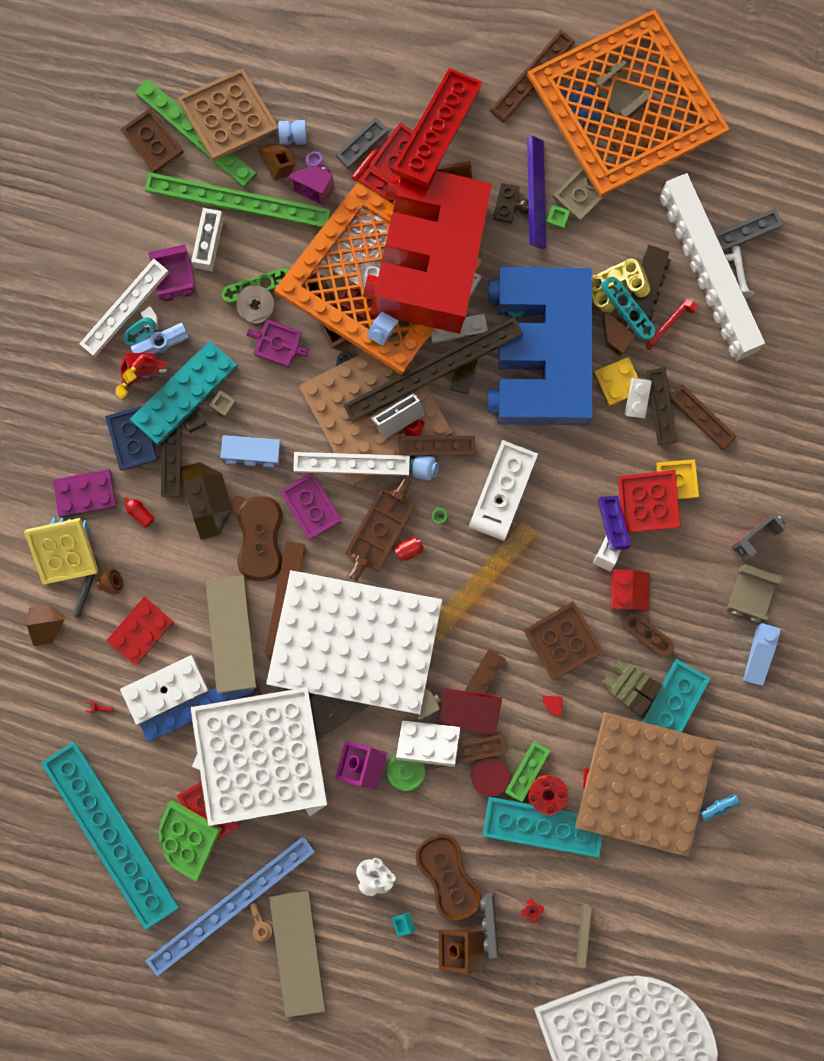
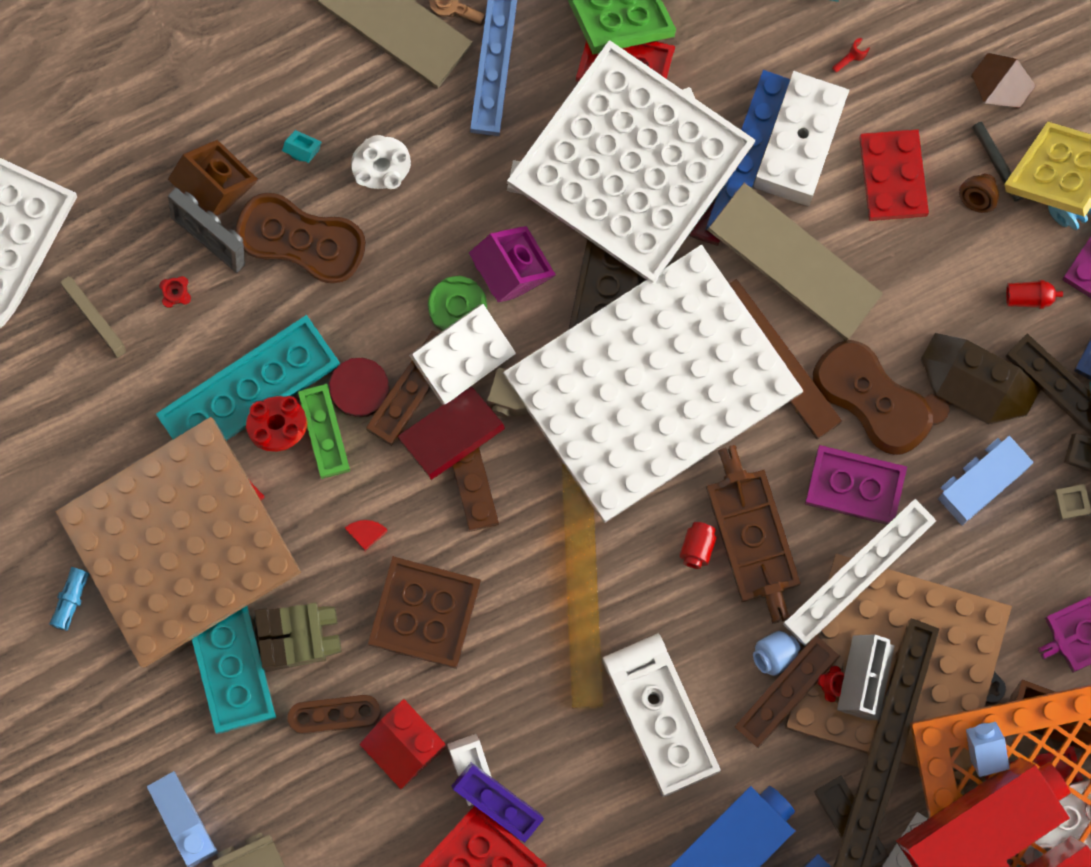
camera: 130 degrees right, 5 degrees down
(437, 519) = (701, 611): bright green hinge -> none

